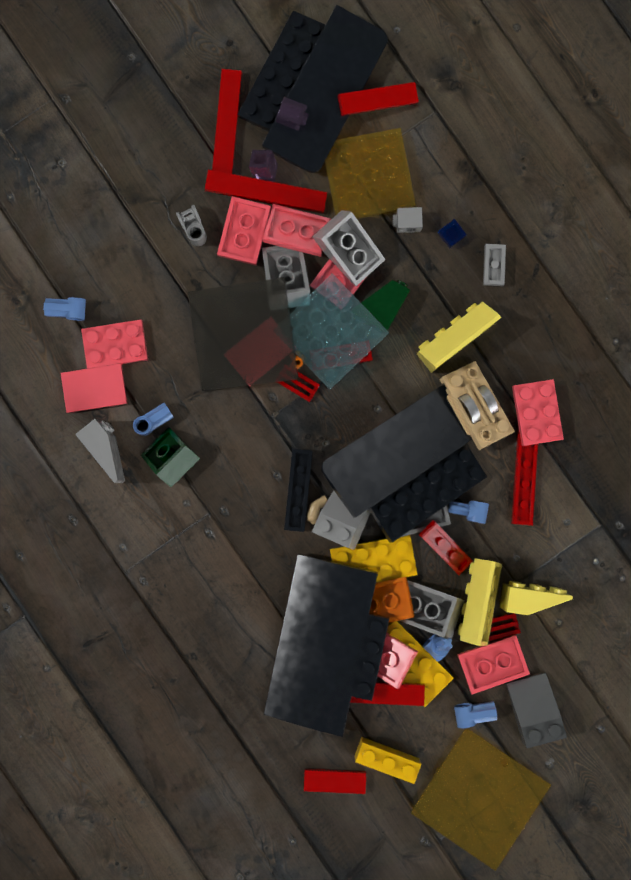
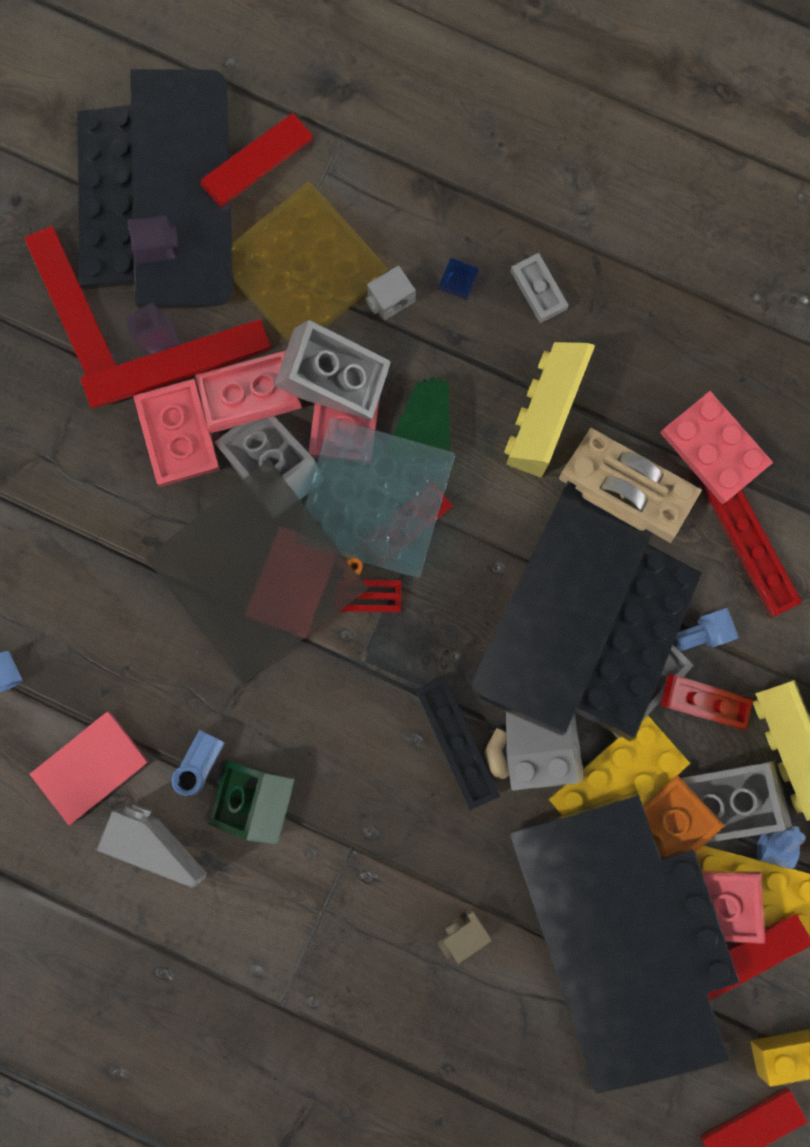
camera: 30 degrees left, 5 degrees down
(114, 344) = (84, 689): coral plate -> none
(192, 223) = (99, 463): light grey piece -> none
(241, 593) = (463, 937): none -> dark tan brick

